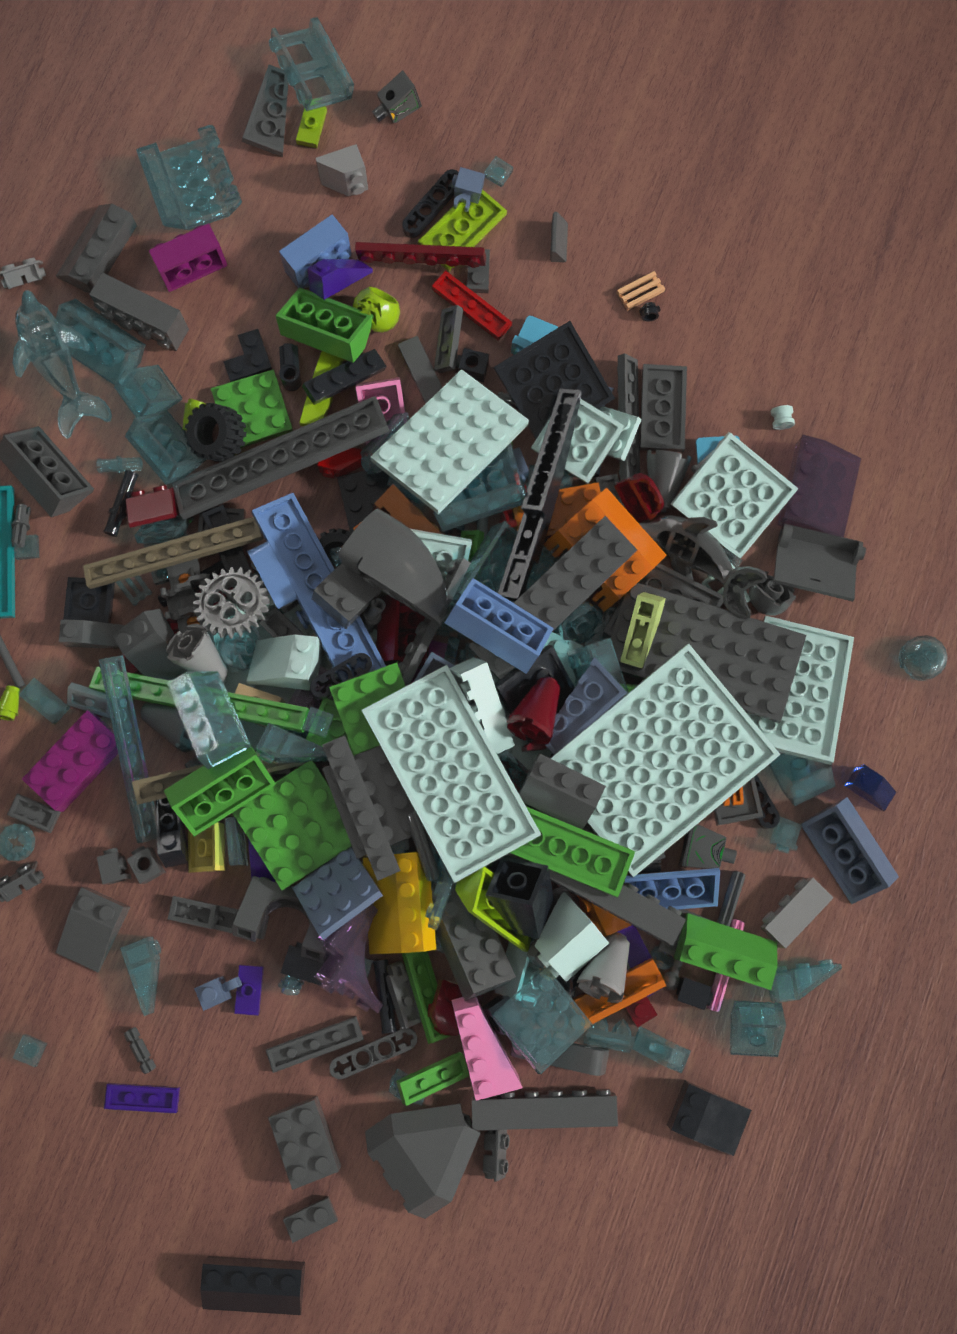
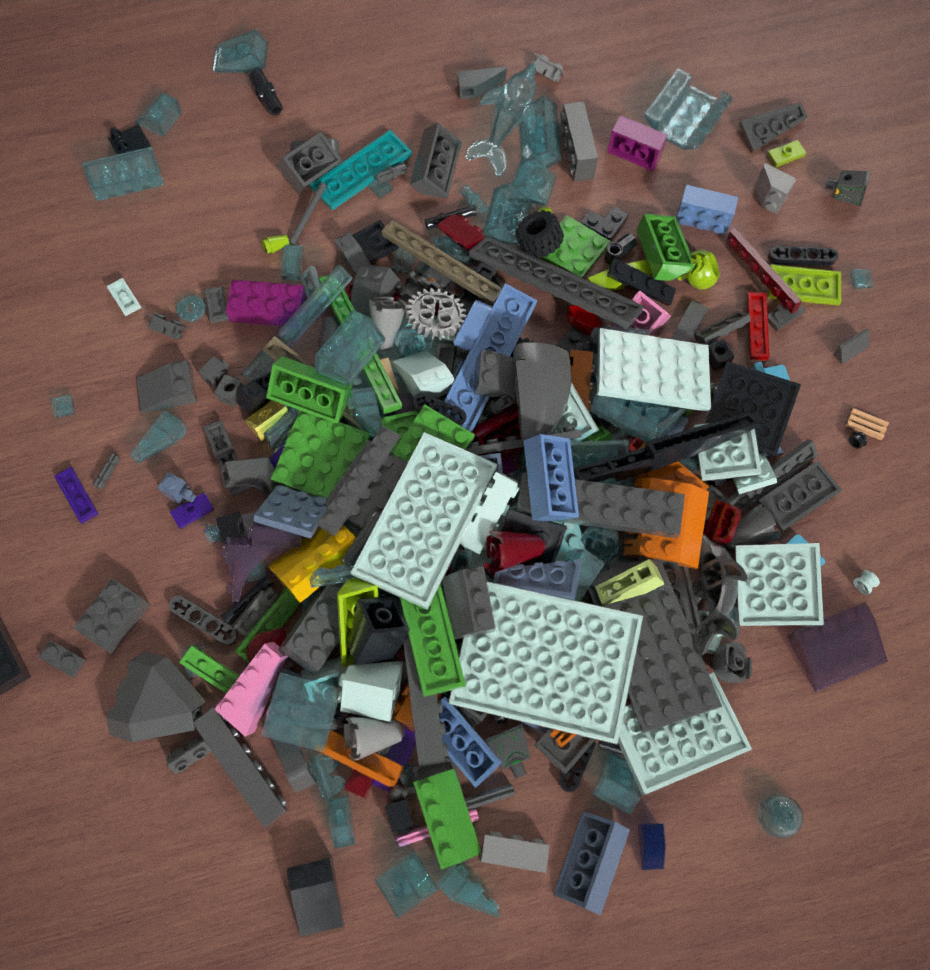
camera: 55 degrees right, 10 degrees down
(97, 247) = (602, 95): dark grey slope -> none
(314, 1044) = (184, 578): dark grey tile -> none
(318, 722) = (396, 416): clear light blue plate -> none
(325, 64) = (832, 133): clear light blue window -> none
(334, 275) = (700, 228): dark purple slope -> none
(468, 187) = (832, 266): sand blue brick -> none
(786, 835) = (566, 804): clear light blue bracket -> none
(817, 561) = (784, 682): dark grey door -> none

